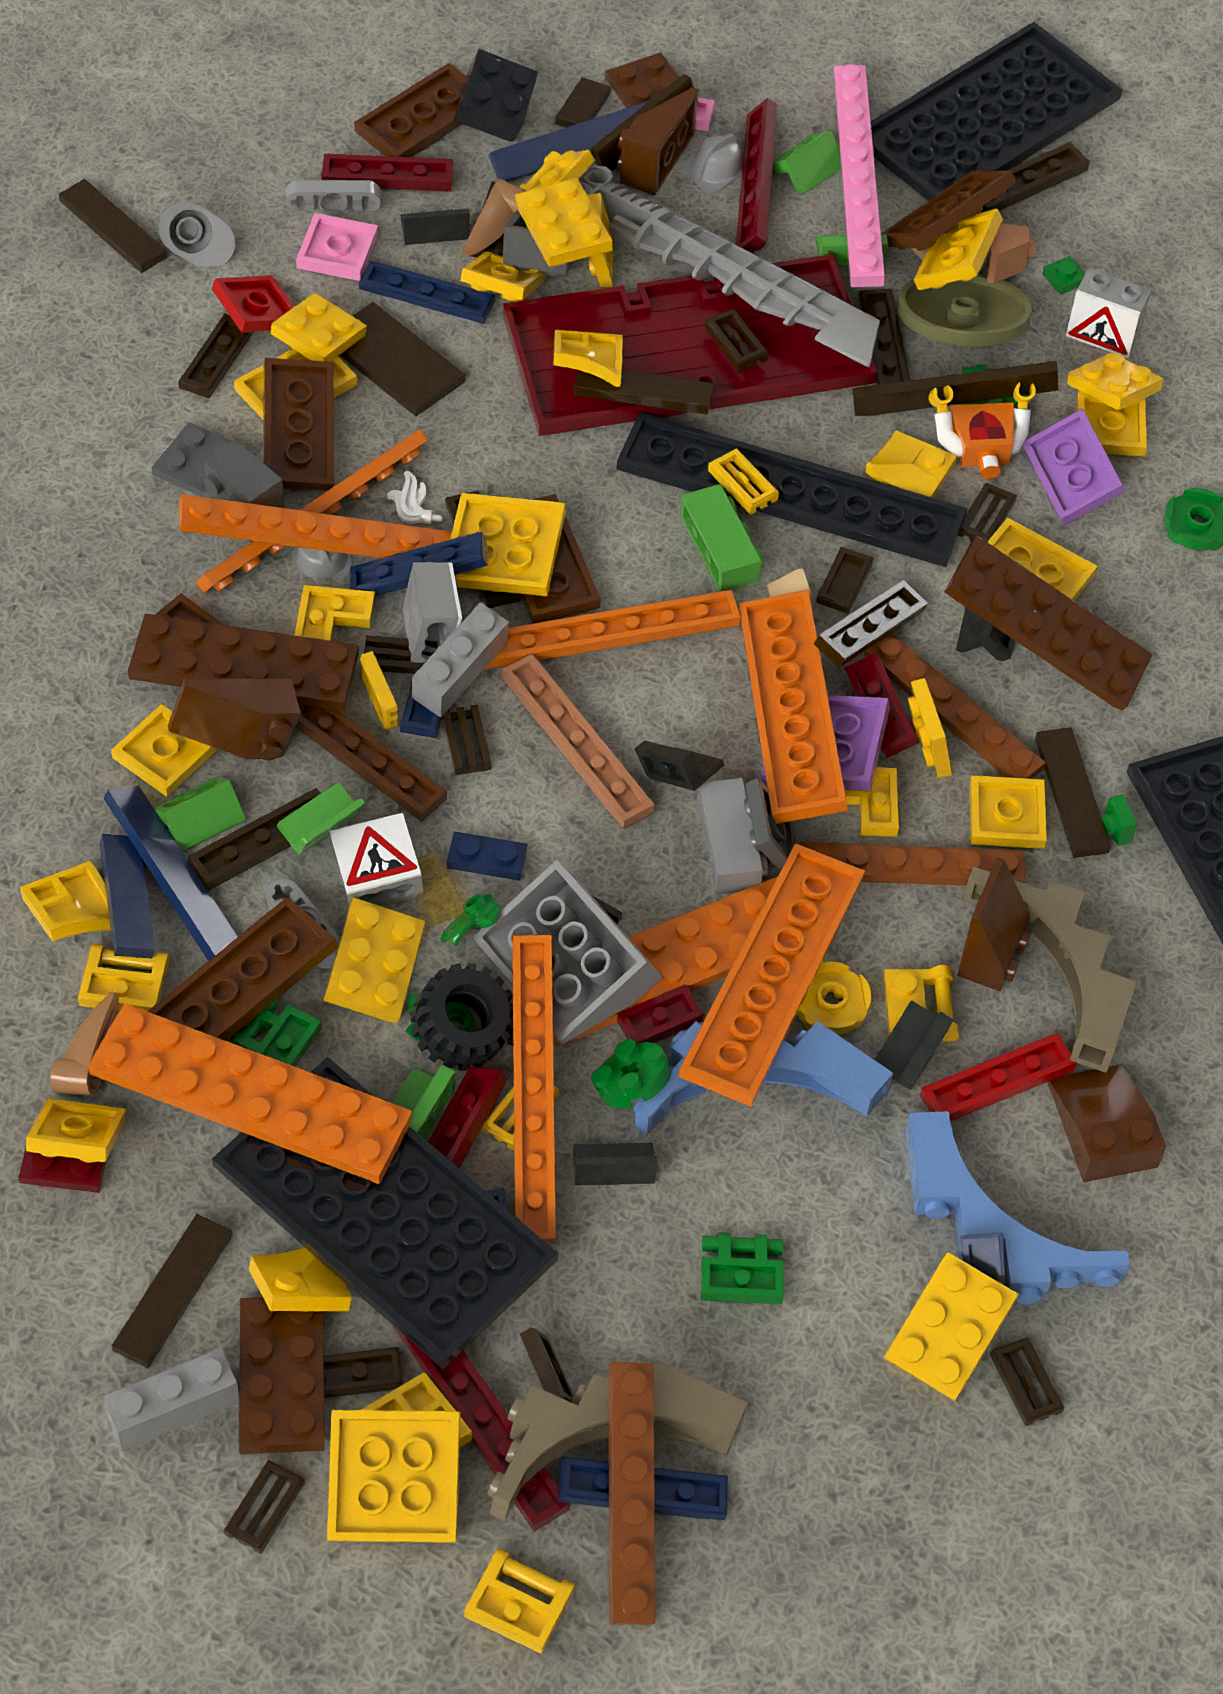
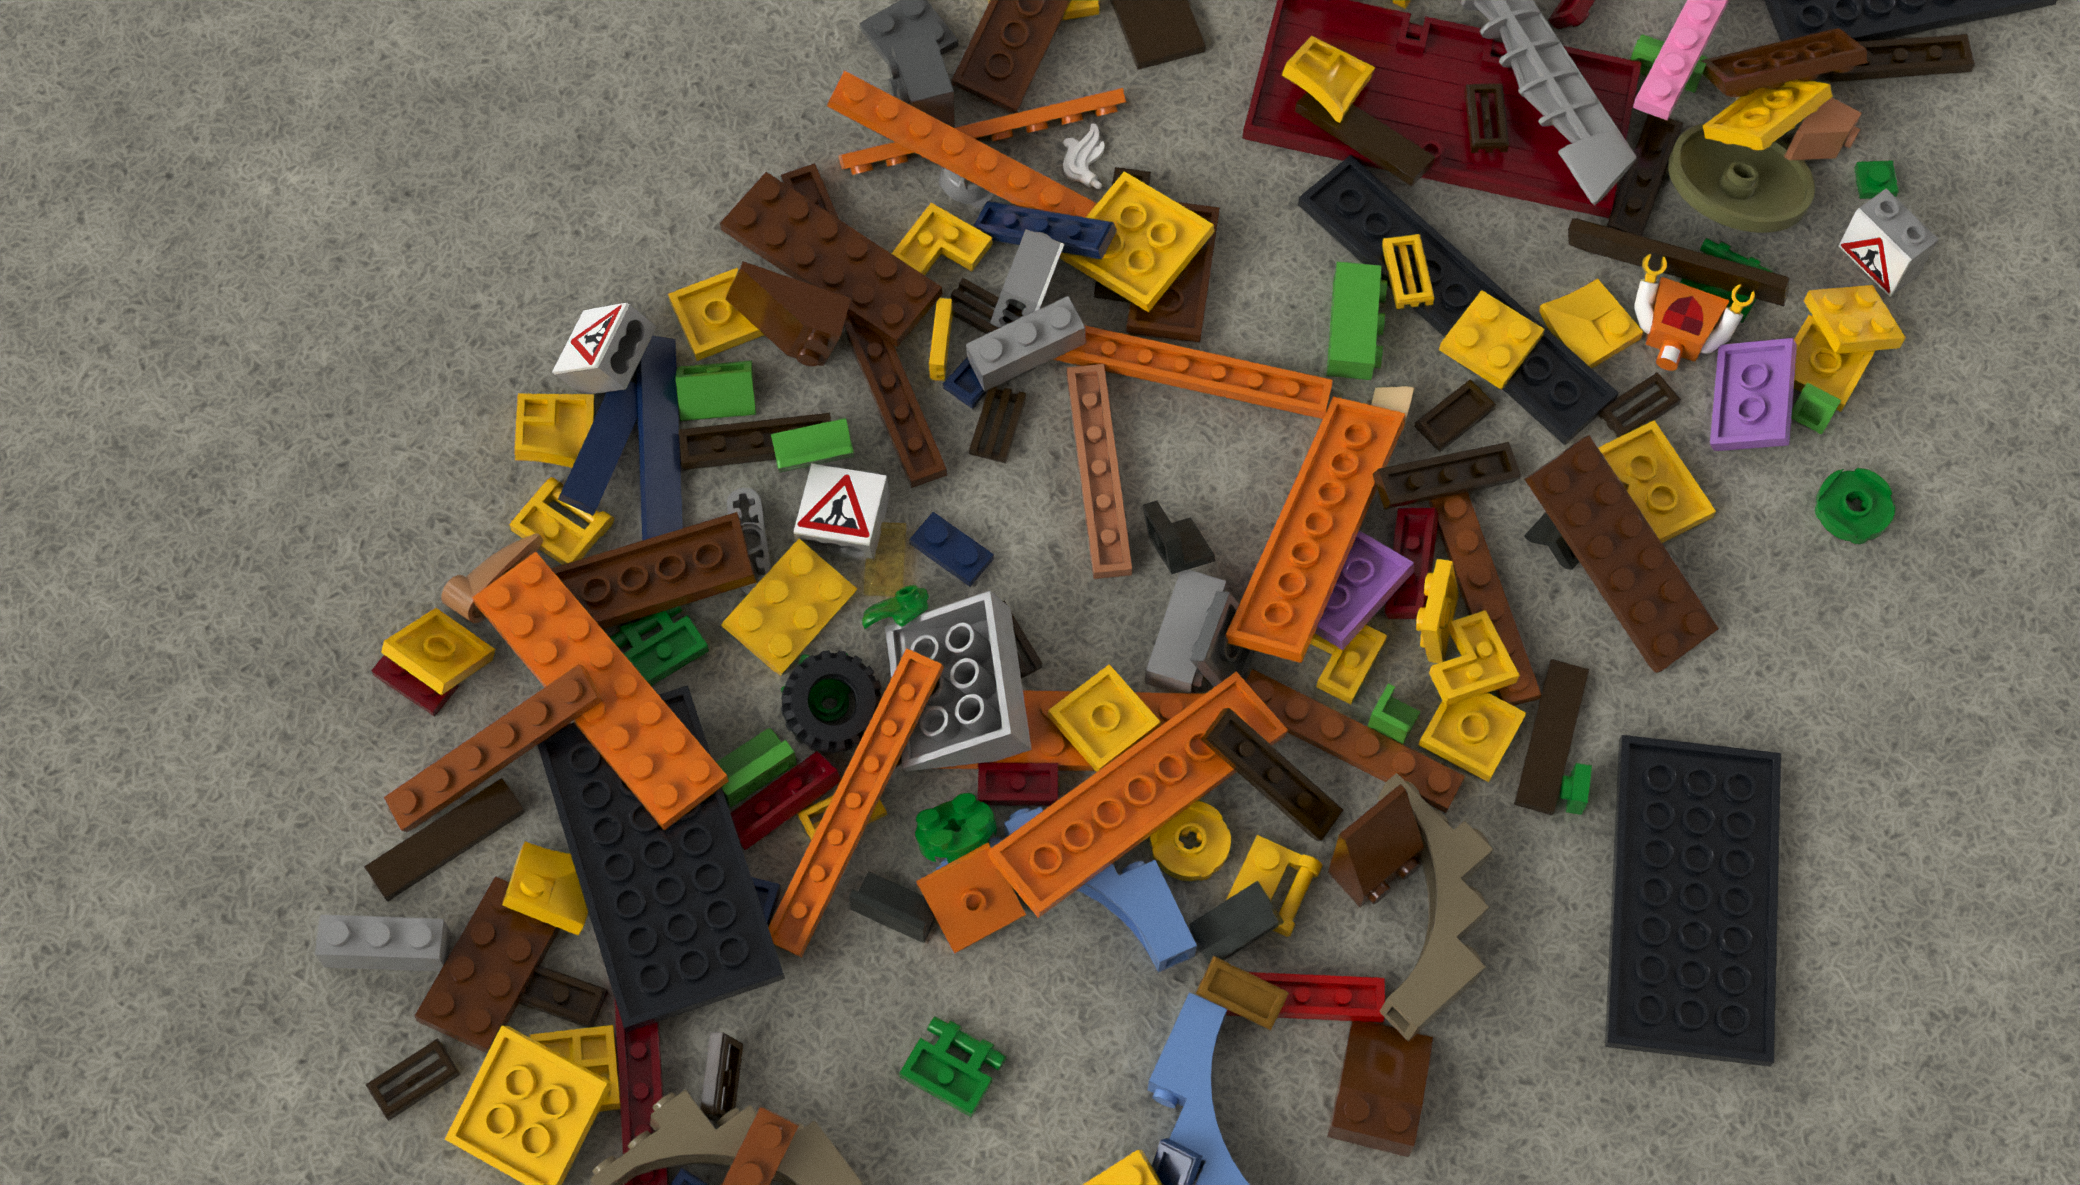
camera: 30 degrees right, 10 degrees up
(84, 813) = (604, 349): none -> piece
(180, 1186) = (493, 748): none -> dark orange plate
(679, 1122) = (970, 898): none -> orange plate
(706, 928) = (1103, 718): none -> yellow plate
(843, 506) = (1491, 339): none -> yellow plate
(873, 911) = (1272, 774): none -> dark brown tile
(939, 830) = (1393, 716): none -> bright green panel
(952, 1093) = (1242, 992): none -> pearl gold tile
(986, 752) = (1482, 662): none -> yellow plate
(1127, 458) = (1814, 408): none -> bright green plate

